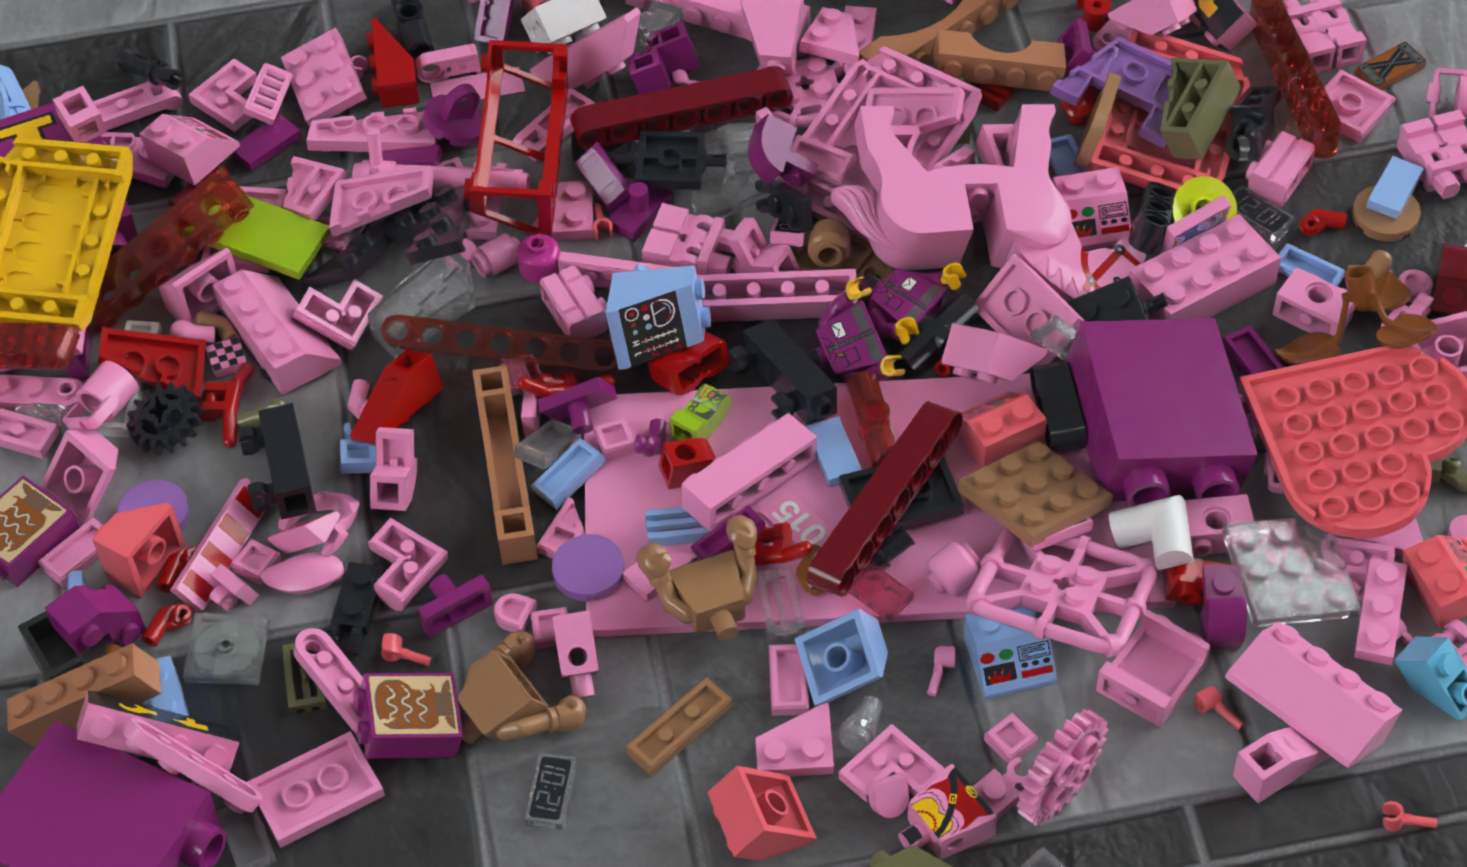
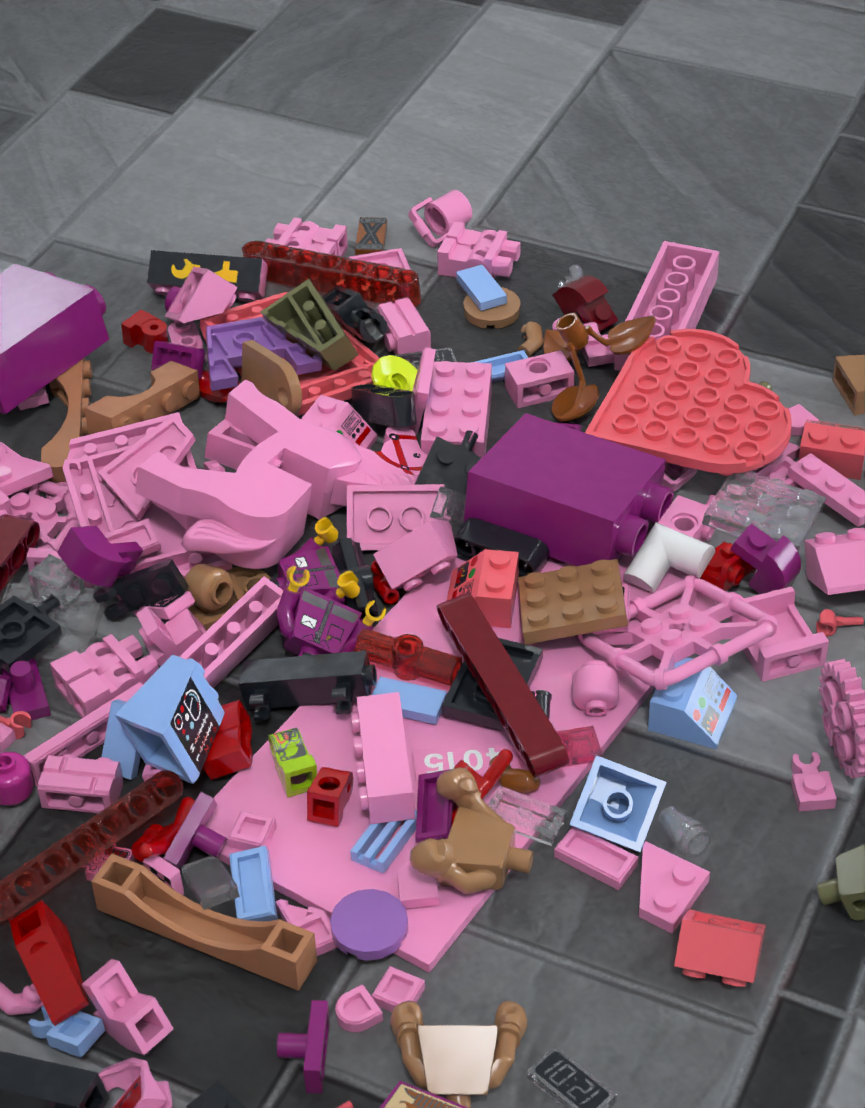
camera: 55 degrees left, 10 degrees down
(413, 561) = (236, 1049): bright pink brick -> none
(572, 634) = (452, 974): bright pink torso -> none
(653, 443) = (284, 808): magenta arm -> none
(679, 726) = (580, 957): medium nougat tile -> none
(886, 756) = (735, 830): bright pink plate -> none
(889, 795) = (768, 850): bright pink tile -> none
(943, 658) = (662, 749): bright pink hand -> none
(948, 816) = (815, 824): torso -> none
(1010, 738) = (768, 752): bright pink tile -> none
(1321, 219) = (465, 338): red arm -> none

